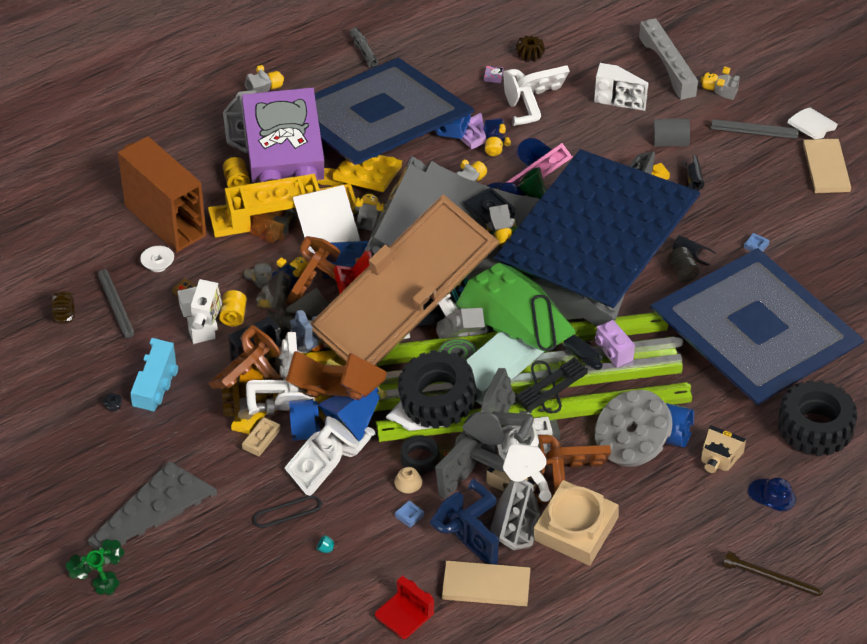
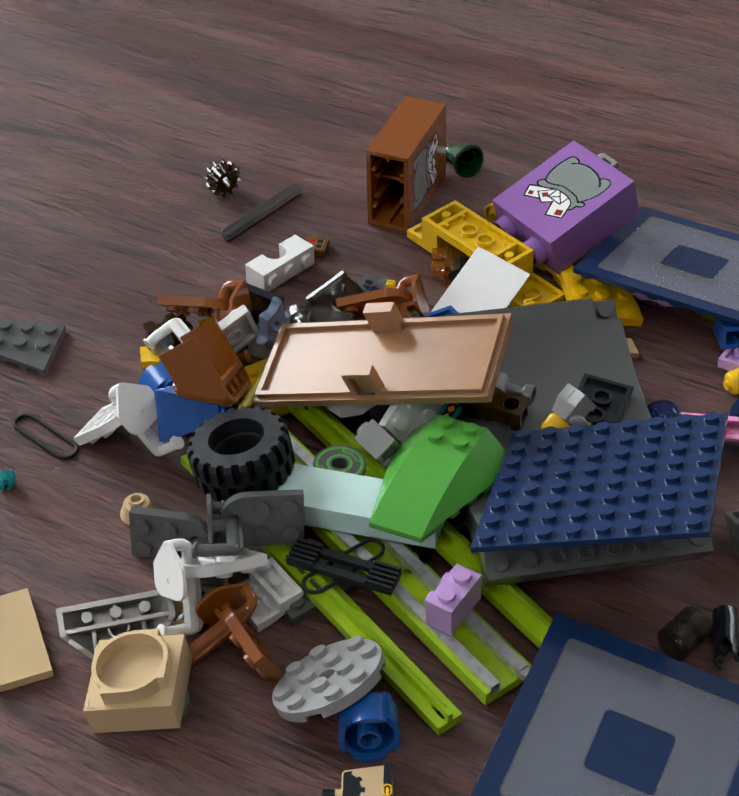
camera: 65 degrees right, 5 degrees down
(112, 402) = (126, 260): black plate -> none
(156, 376) = (168, 268): medium azure wedge -> none
(157, 258) = (340, 210): white piece -> none
(205, 303) = (272, 251): white torso -> none
(233, 308) = (301, 283): yellow wheel -> none
(261, 436) = (128, 371): tan plate -> none
(263, 81) = (658, 177): light grey piece -> none
(409, 514) = (89, 532): medium blue tile -> none
(420, 442) = (182, 490): black tyre -> none
(470, 531) = (83, 562): dark blue plate -> none
(473, 172) = (662, 379): piece -> none
(551, 319) = (364, 519): black piece -> none
(583, 351) = (422, 574): black piece -> none

